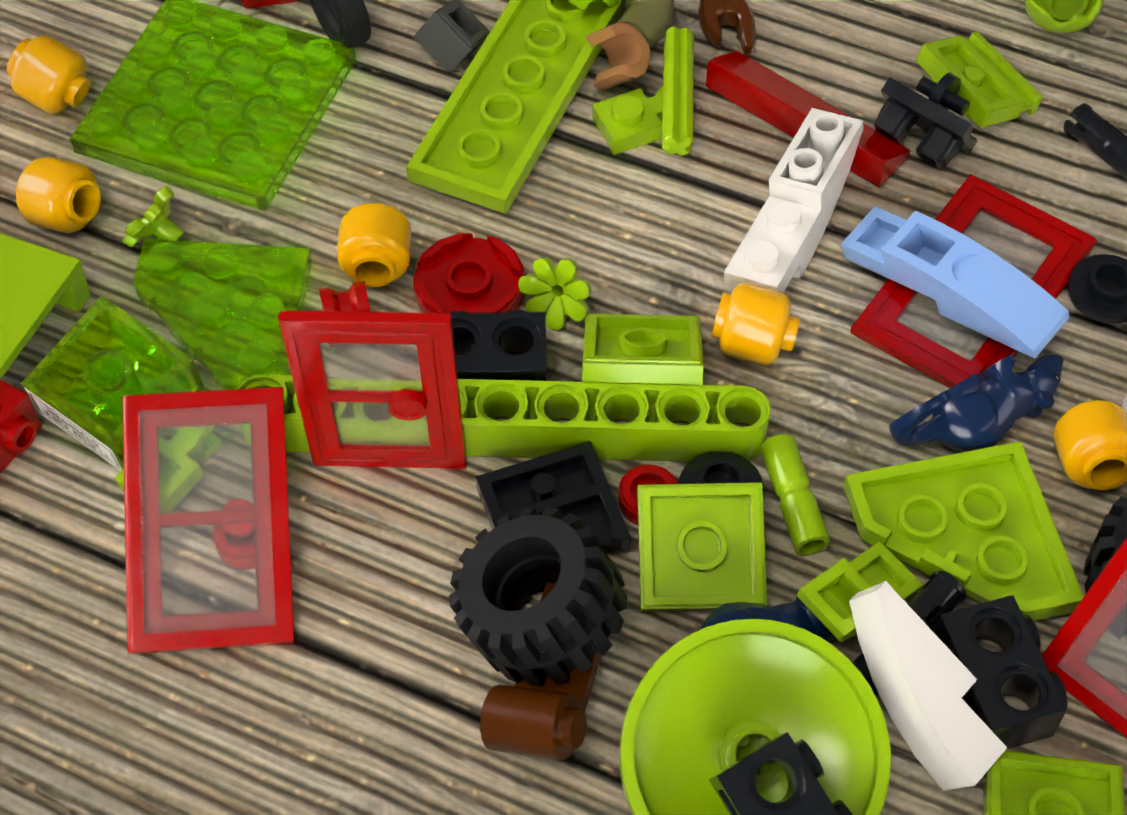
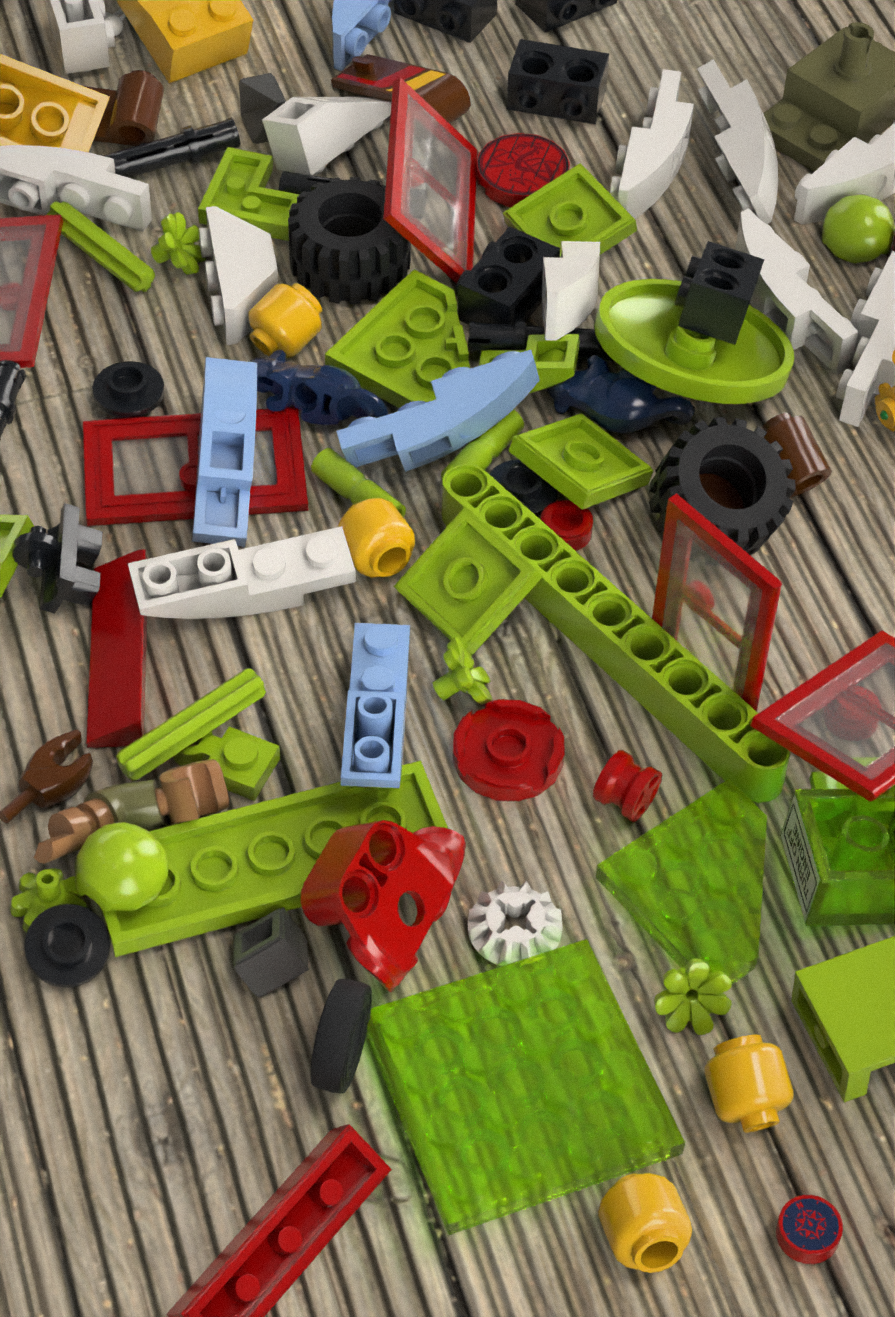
camera: 135 degrees left, 5 degrees down
(344, 183) = (487, 922): none -> white gear
(374, 244) = (552, 811): yellow head -> none
(426, 70) = (361, 883): none -> red piece
(492, 338) = (569, 671): black brick -> none
(559, 480) = (626, 552): black wing -> none
(569, 200) = (376, 706): none -> light blue slope
(837, 446) = (464, 409): none -> light blue slope
(842, 367) = (348, 480): none -> lime piece

